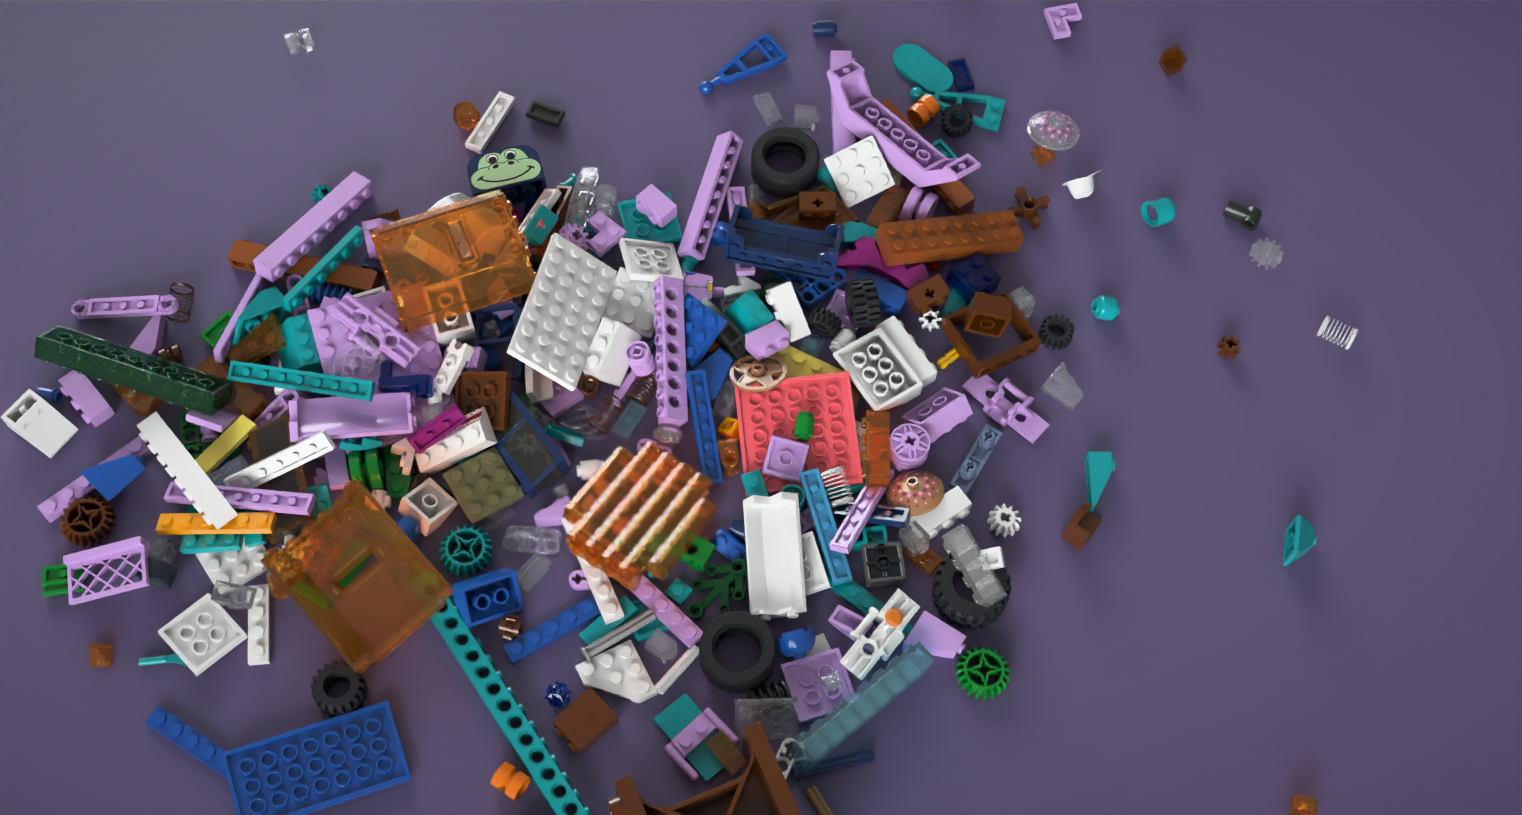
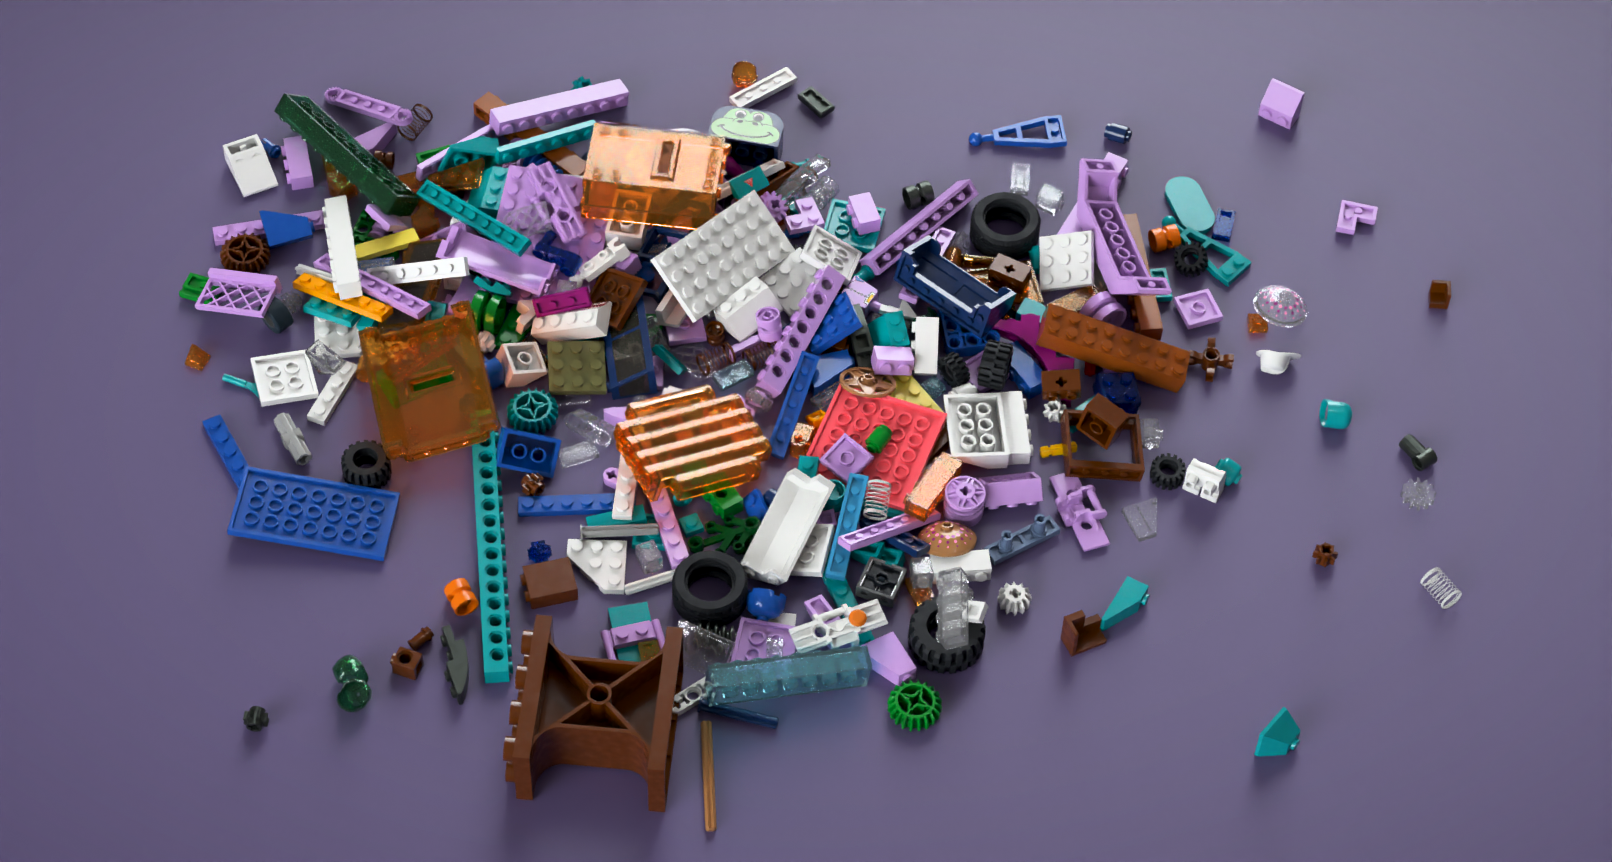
camera: 30 degrees right, 10 degrees down
(159, 508) = (300, 269): none -> white axle
(247, 695) = (292, 439): none -> light grey piece
(690, 165) = (917, 195): none -> pearl dark grey wheel
(993, 164) = (1198, 309): none -> lavender plate
(1094, 326) = (1204, 477): none -> white hips

